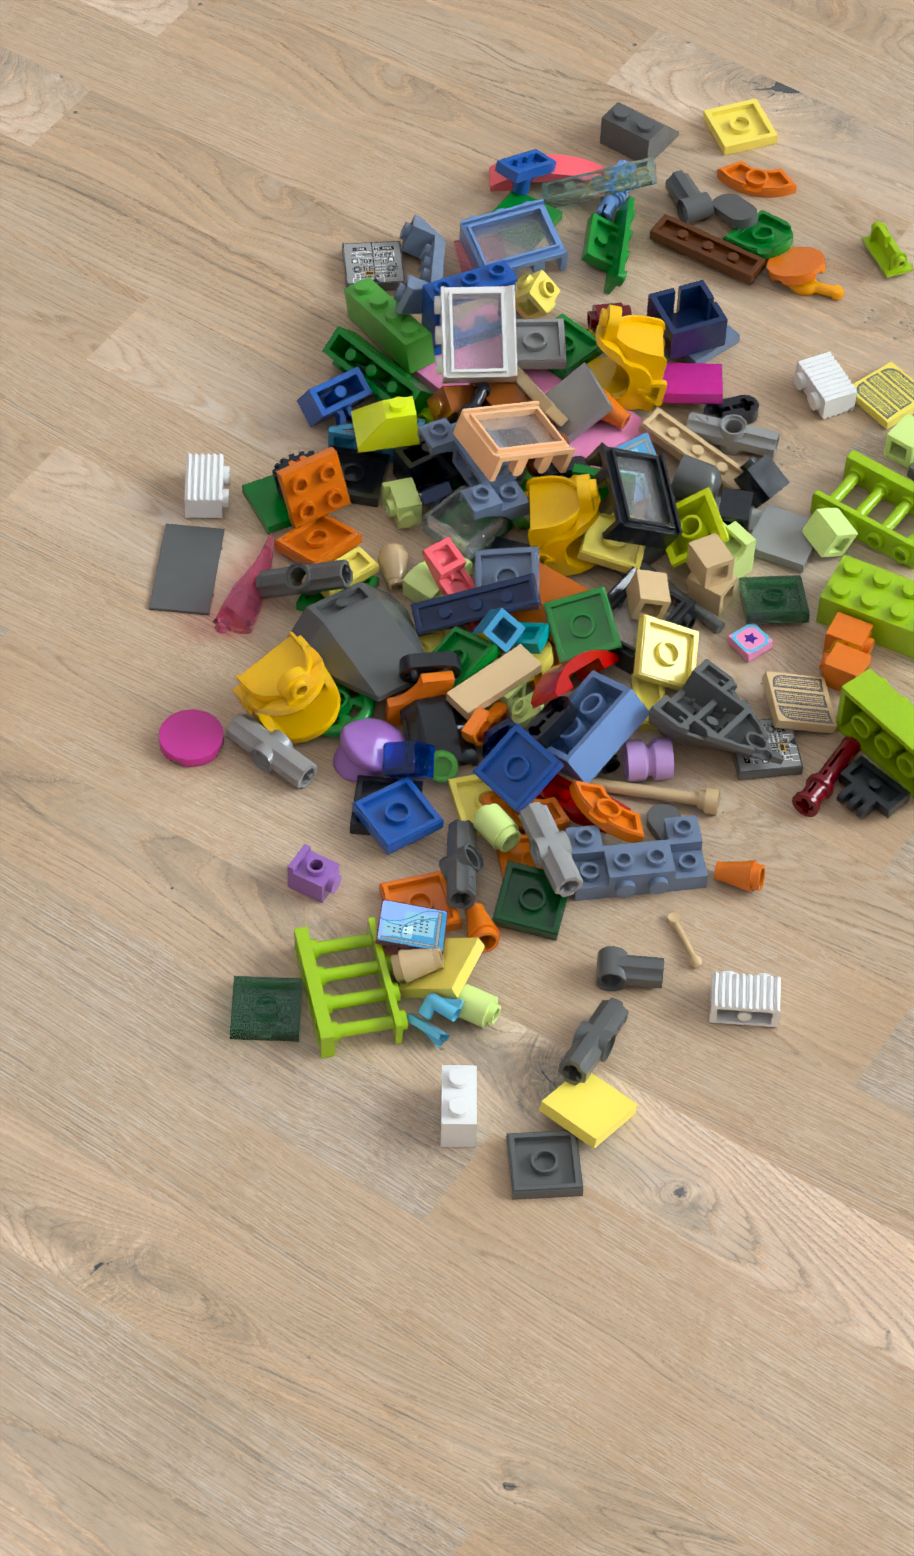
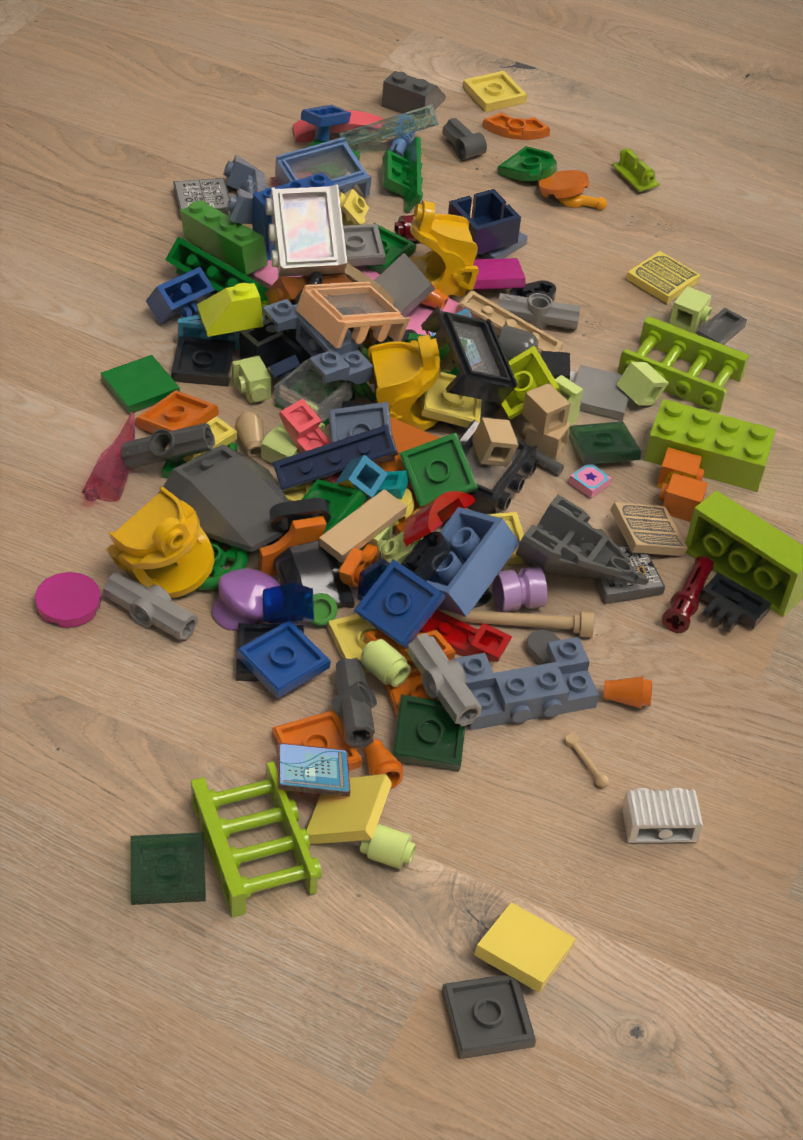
camera: 10 degrees left, 5 degrees down
(187, 569) = (53, 448): dark grey window -> none
(205, 486) = (66, 375): white brick -> none
(311, 485) = (167, 365): orange plate -> none
(313, 874) = (204, 723): medium lavender brick -> none
(416, 963) = (323, 806): tan cone -> none
(445, 1006) = (360, 850): medium azure piece -> none
(458, 1106) = (388, 958): white brick -> none
(593, 1041) = (518, 874): dark grey piece -> none
(605, 812) = (491, 641): orange tile -> none
(618, 969) = (529, 796): dark grey piece -> none
(665, 652) = (518, 491): light yellow tile -> none
(707, 249) = (487, 175): reddish brown plate -> none
(735, 211) = (505, 147): dark grey tile -> none
(762, 478) = (573, 341): black brick -> none
(825, 385) = (609, 270): white brick -> none

